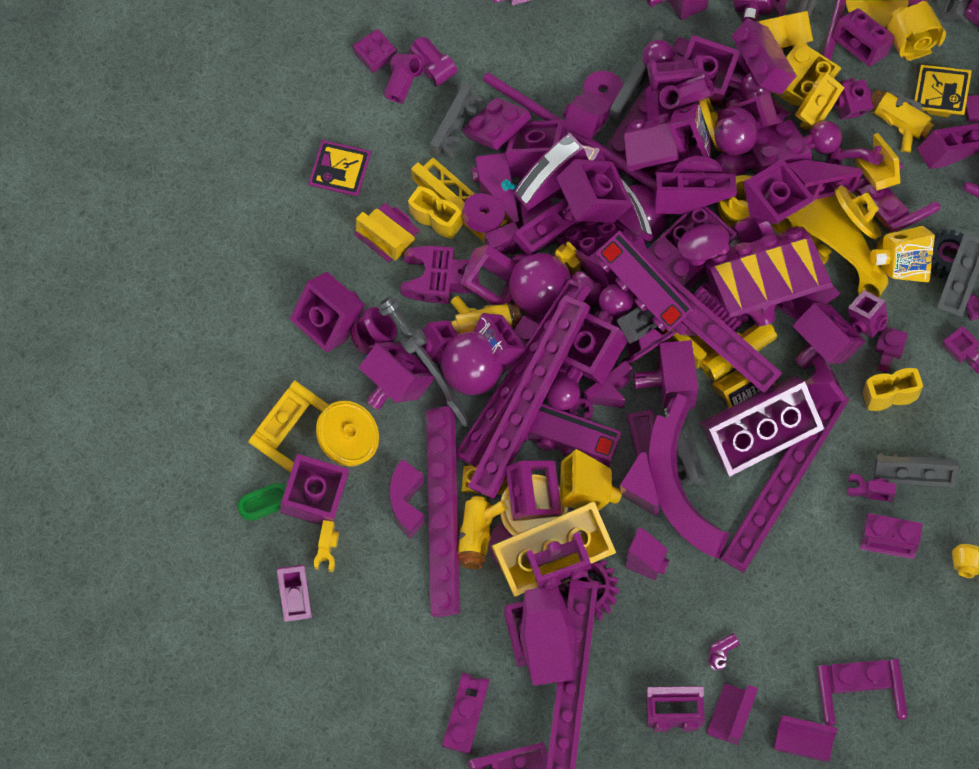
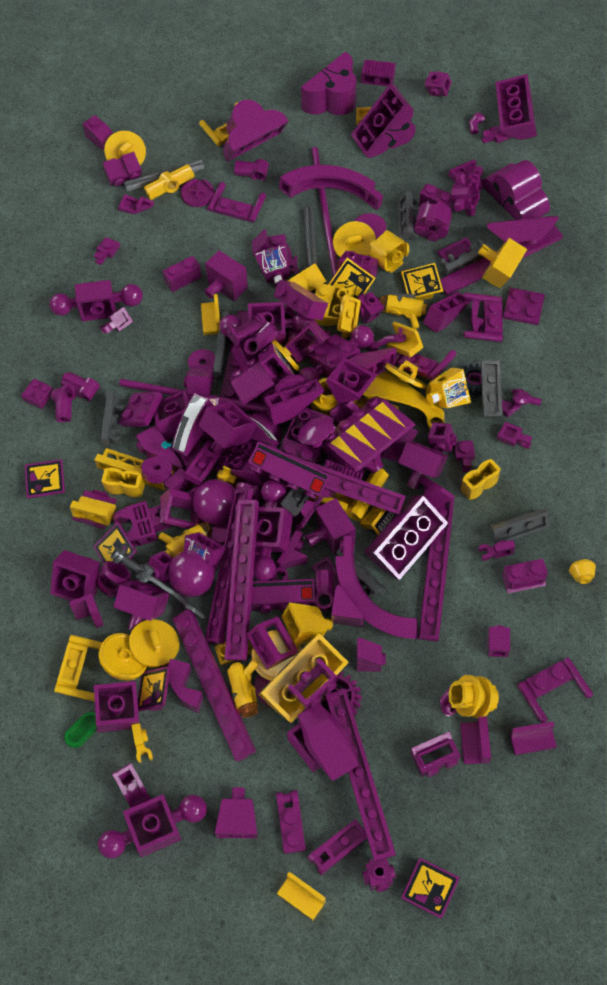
camera: 20 degrees left, 5 degrees down
(300, 649) = (152, 826): none -> magenta brick
(326, 353) = (86, 606): none -> magenta panel
(367, 488) = (153, 689): none -> piece
(391, 432) = (153, 643): none -> yellow shield
(394, 283) = (113, 539): none -> piece
(403, 680) = (236, 817): none -> magenta torso
(629, 447) = (324, 587): none -> magenta piece
(640, 31) = (211, 317): none -> yellow panel
(736, 133) = (305, 353): magenta helmet -> none
(753, 657) = (473, 696): none -> yellow piece
(818, 603) = (498, 641): none -> magenta brick
(849, 51) = (352, 277): none -> piece

